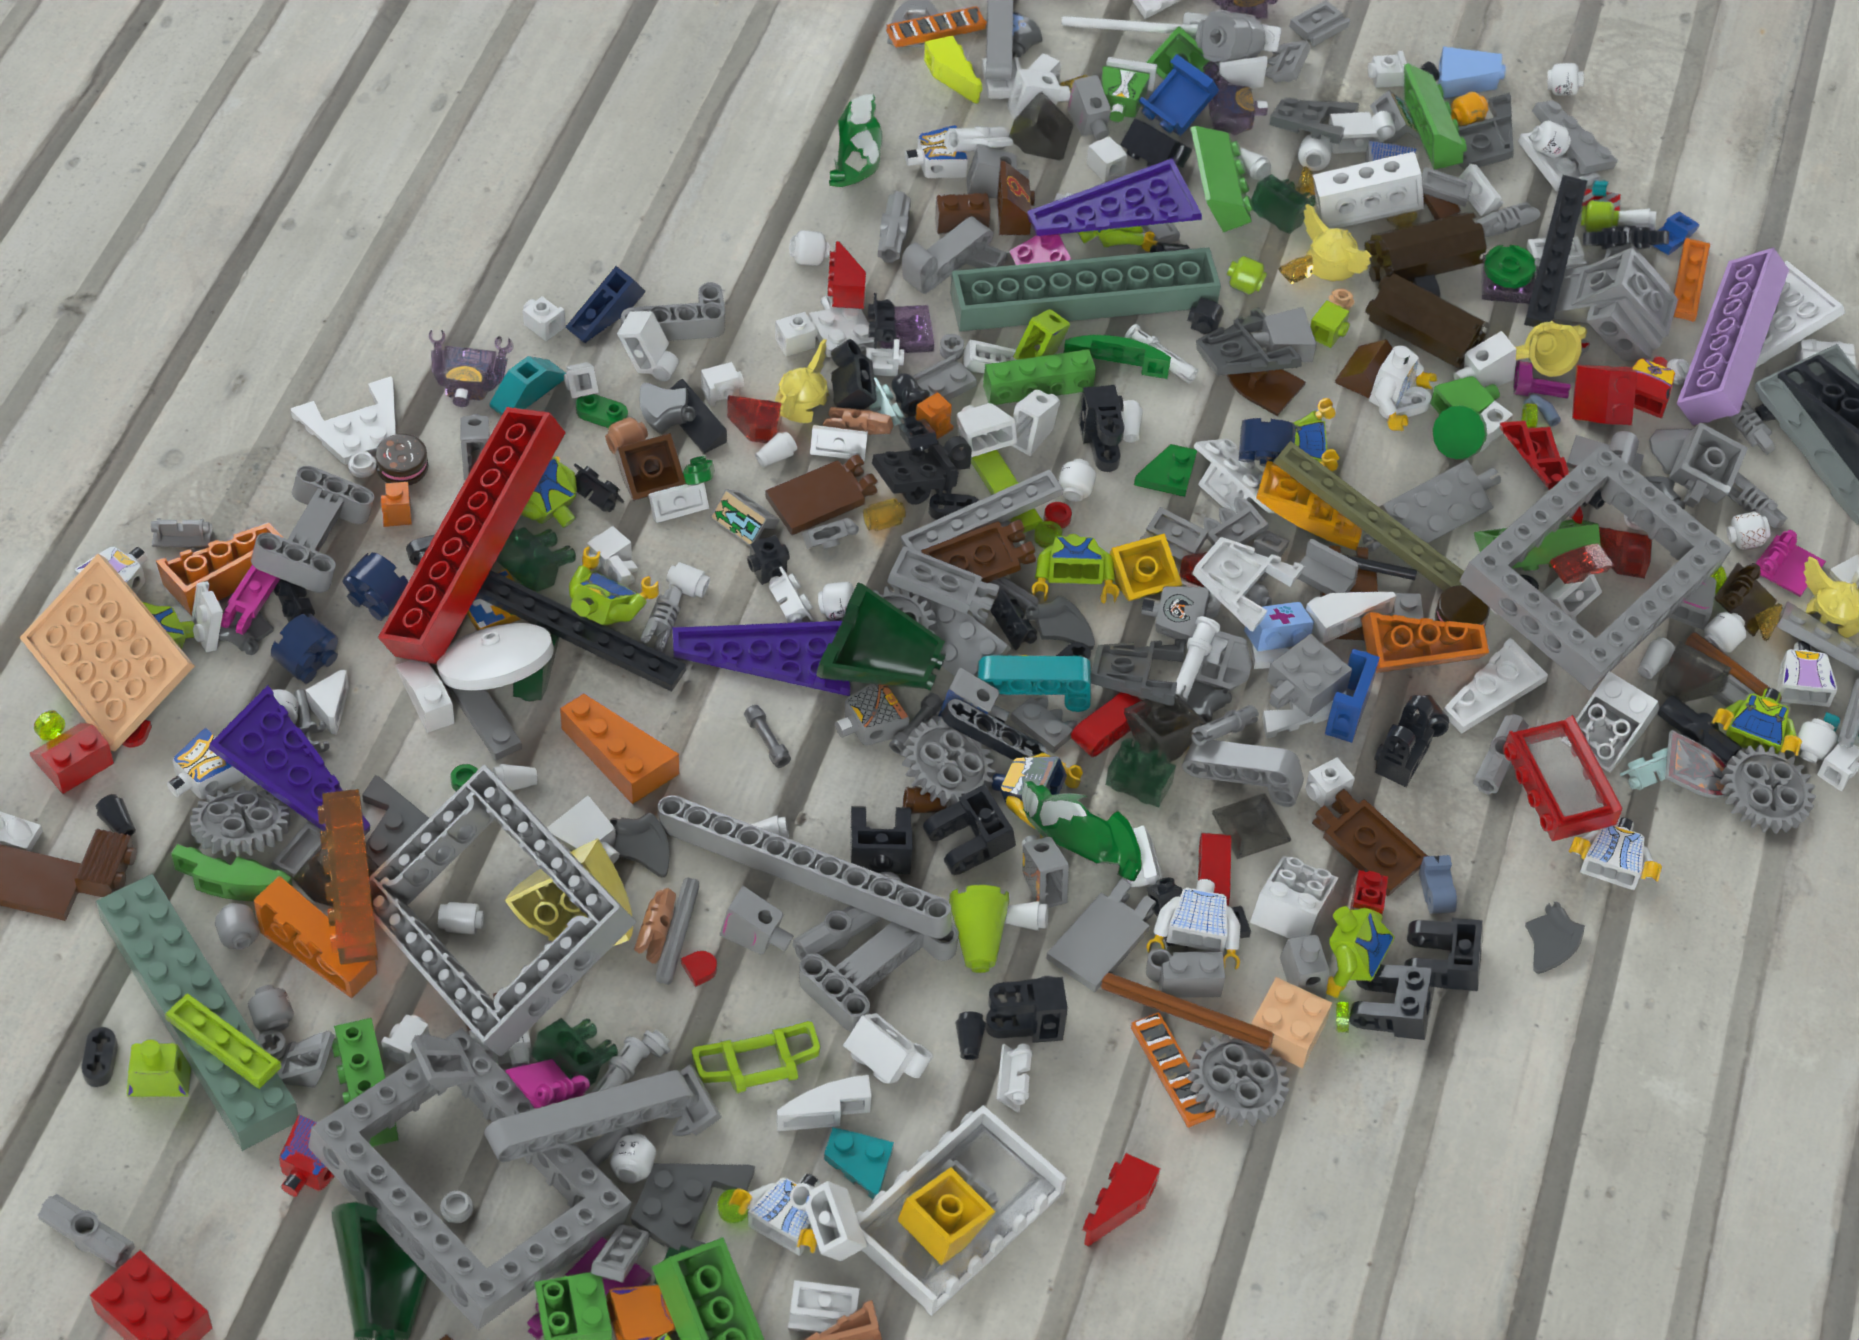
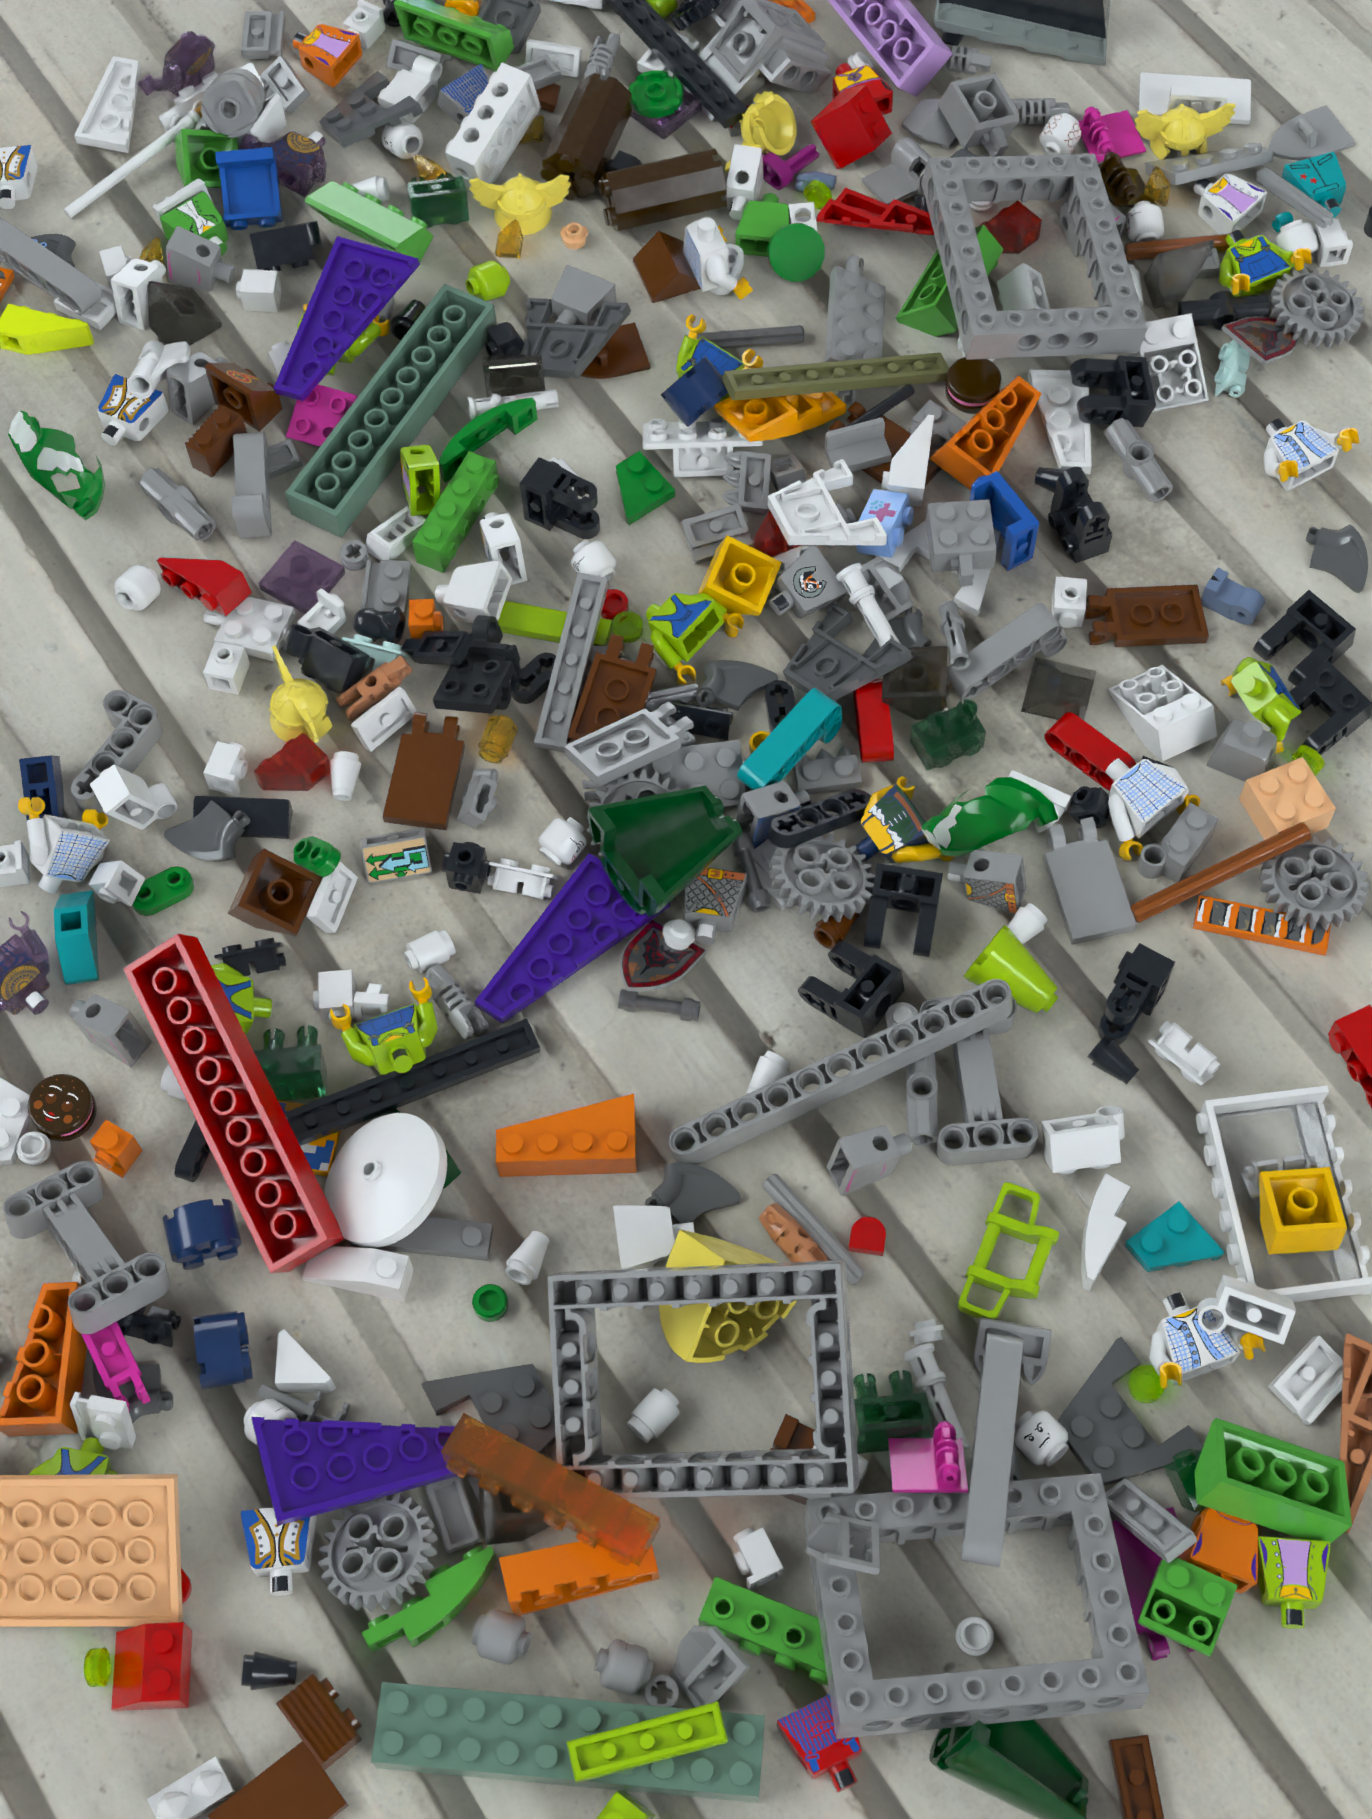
camera: 45 degrees left, 10 degrees up
(578, 333) = (61, 845): none -> white torso
(624, 433) = (215, 890): nougat head -> none
(799, 710) = (652, 964): none -> shield
(829, 711) = (678, 934): none -> white plate
(883, 323) = (273, 583): black hinge -> none
(1176, 333) = (513, 374): none -> clear smoke slope
(1330, 323) = (595, 257): lime brick -> none
(1343, 66) = (328, 52): none -> orange torso
(1362, 455) = (755, 337): none -> flat silver axle
(1369, 891) = (1213, 655): red slope -> none
(1562, 694) = (1128, 389): none -> black brick
(1562, 779) = (1213, 432): red window -> none
(1580, 562) = (1041, 259): clear red slope -> none

